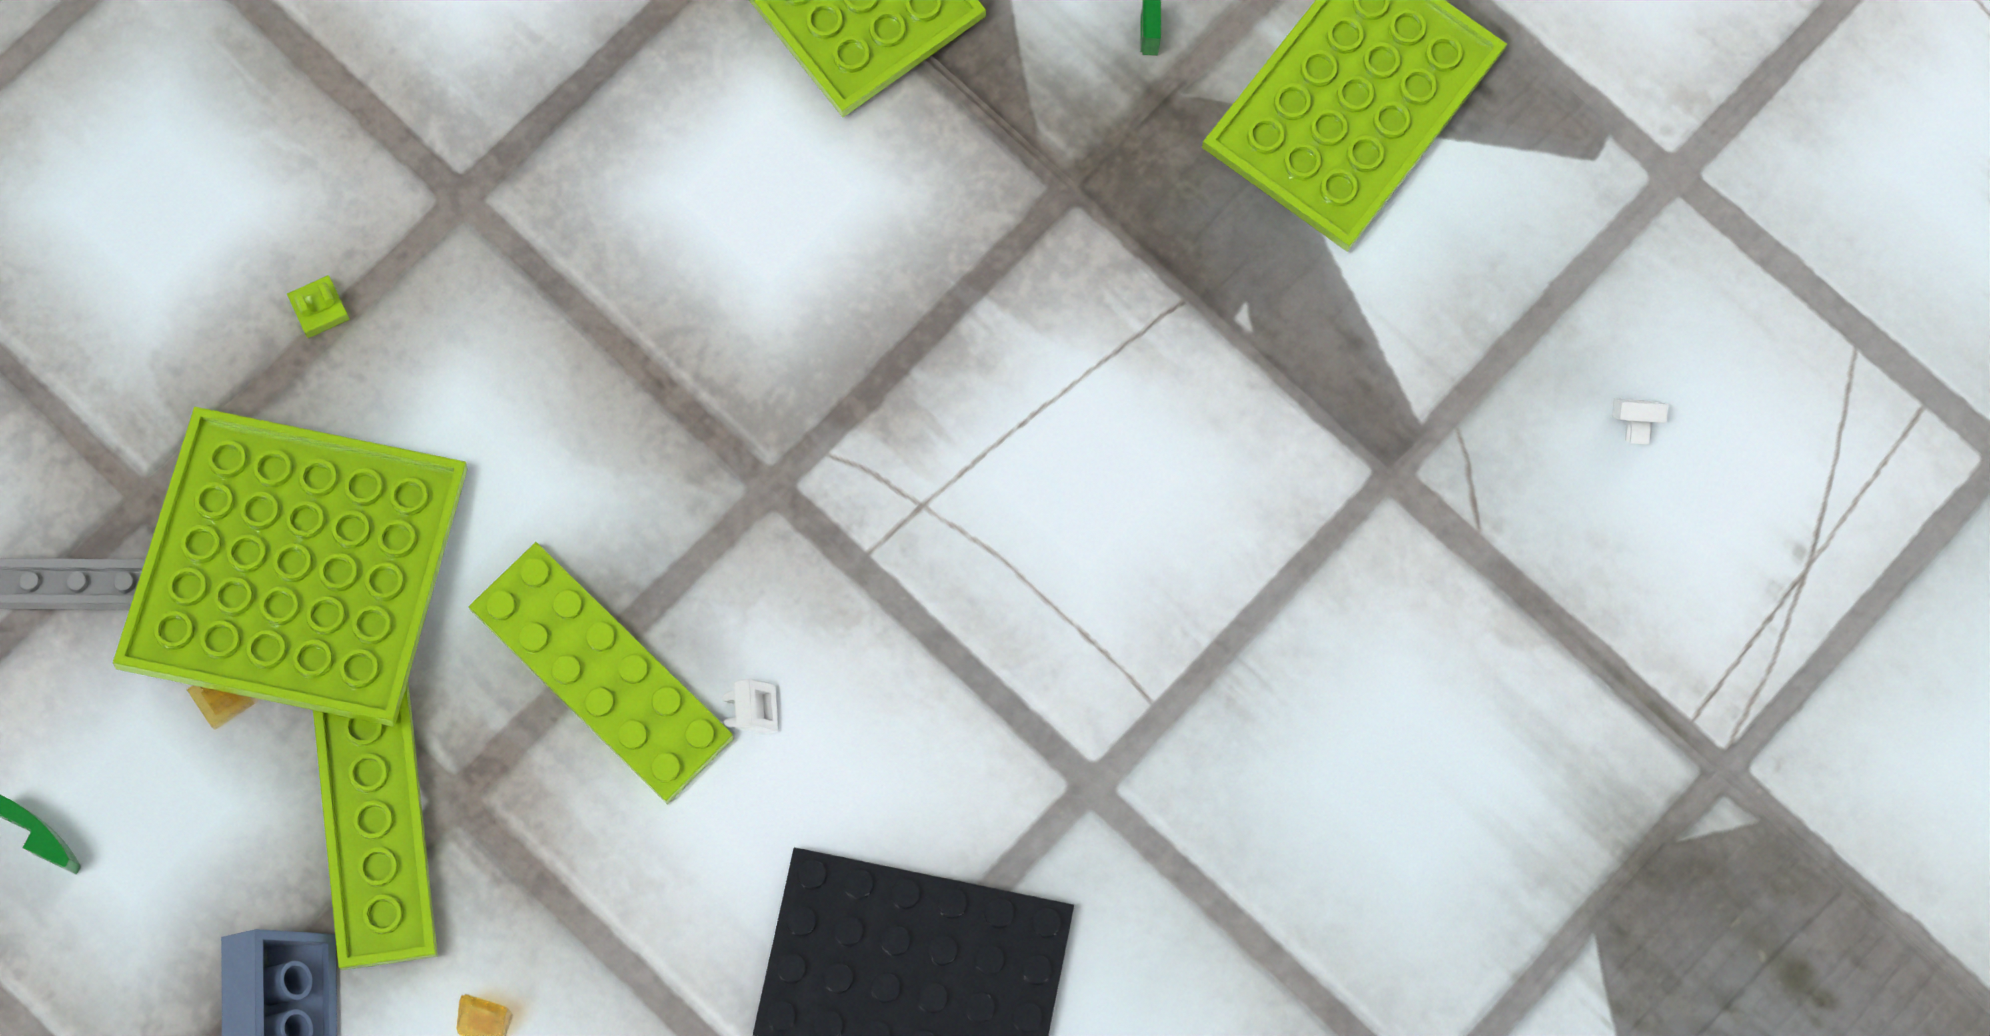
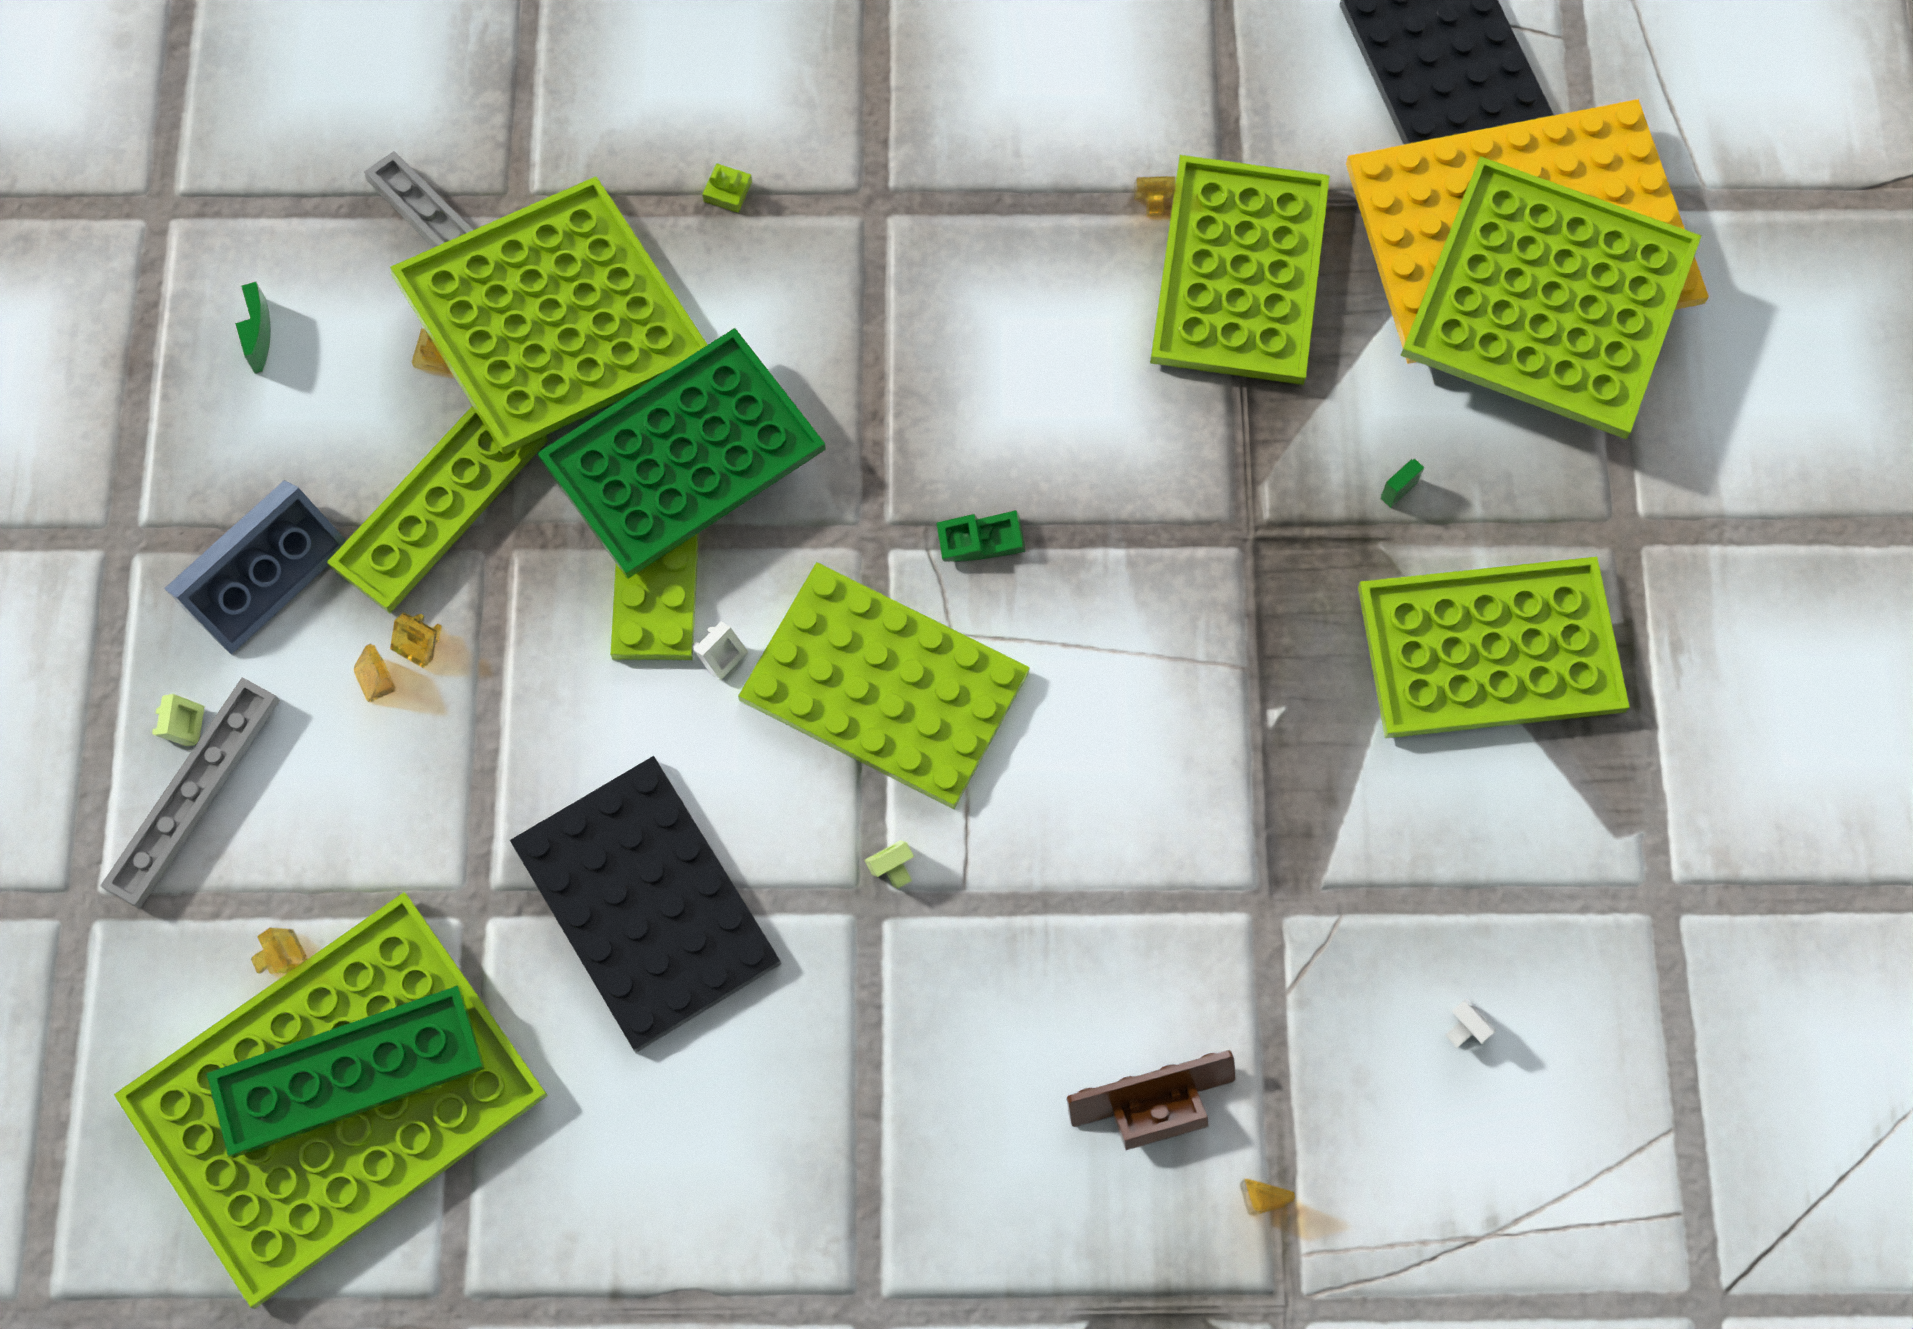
camera: 50 degrees right, 5 degrees down
(487, 955) = (414, 639): none -> clear yellow tile
(544, 574) = (681, 452): none -> green plate
(861, 401) = (982, 538): none -> green slope
(913, 600) = (884, 685): none -> lime plate
(1077, 738) = (890, 862): none -> yellowish green tile
(1477, 716) = (1155, 1103): none -> reddish brown bracket
(1627, 706) = (1264, 1197): none -> clear yellow slope

